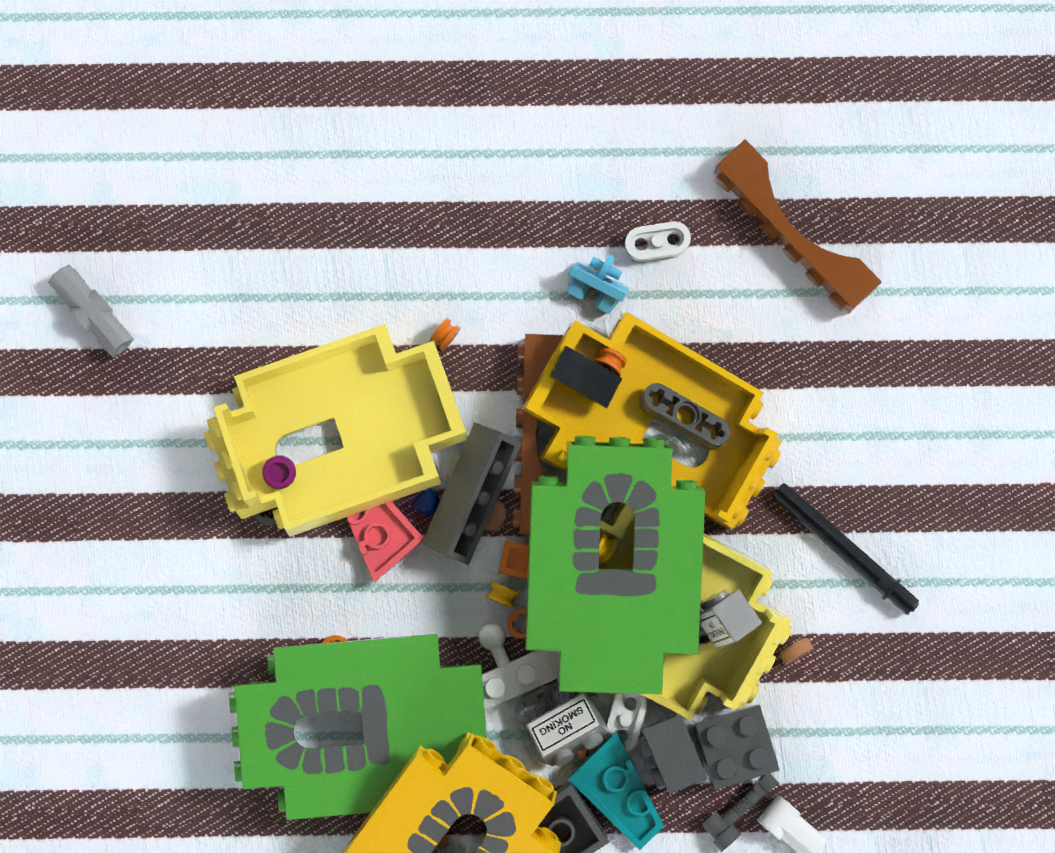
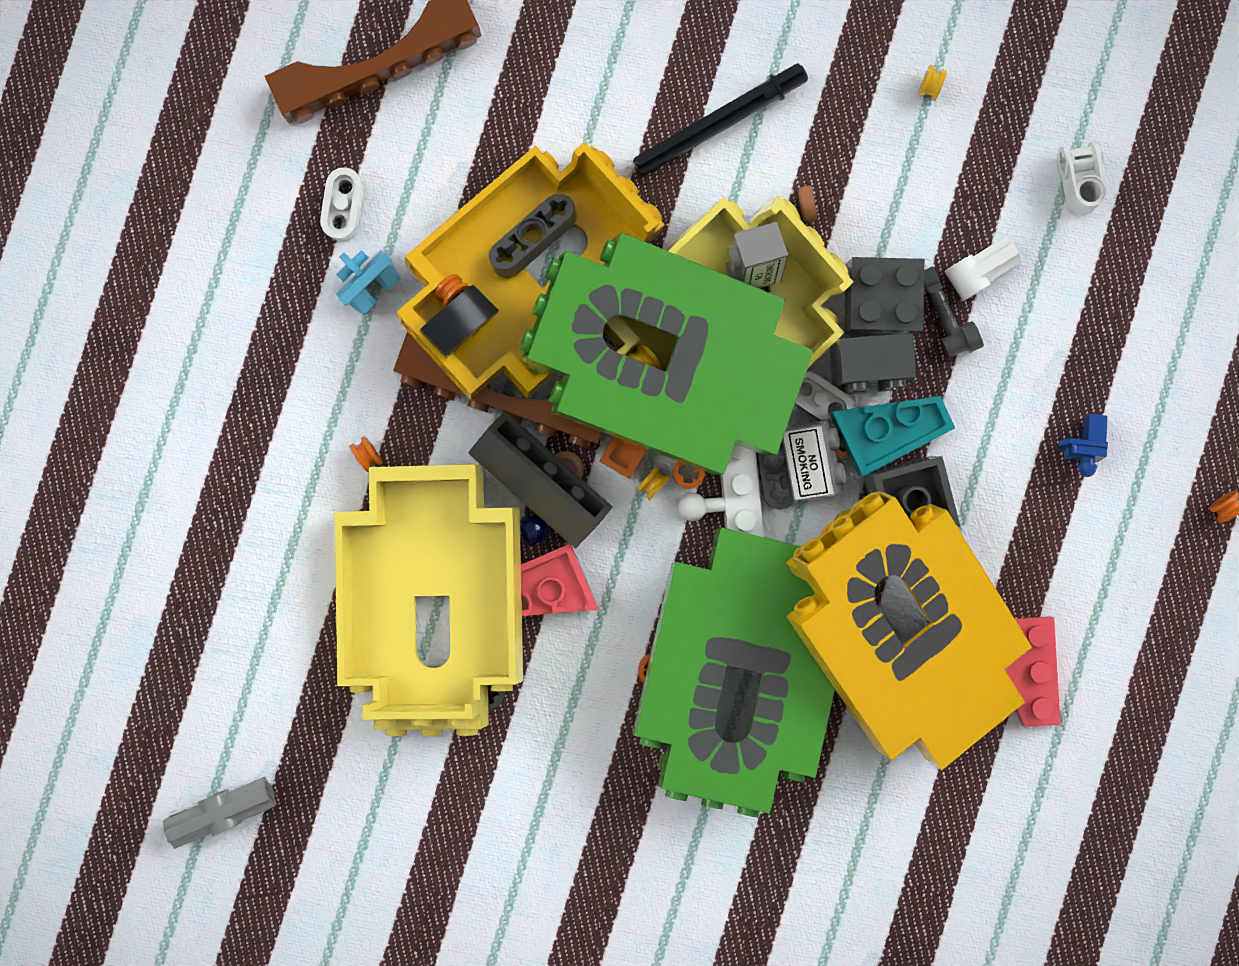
camera: 75 degrees left, 5 degrees up
(279, 472) = (452, 671): magenta tile -> none
(943, 728) = (932, 82): none -> yellow bush

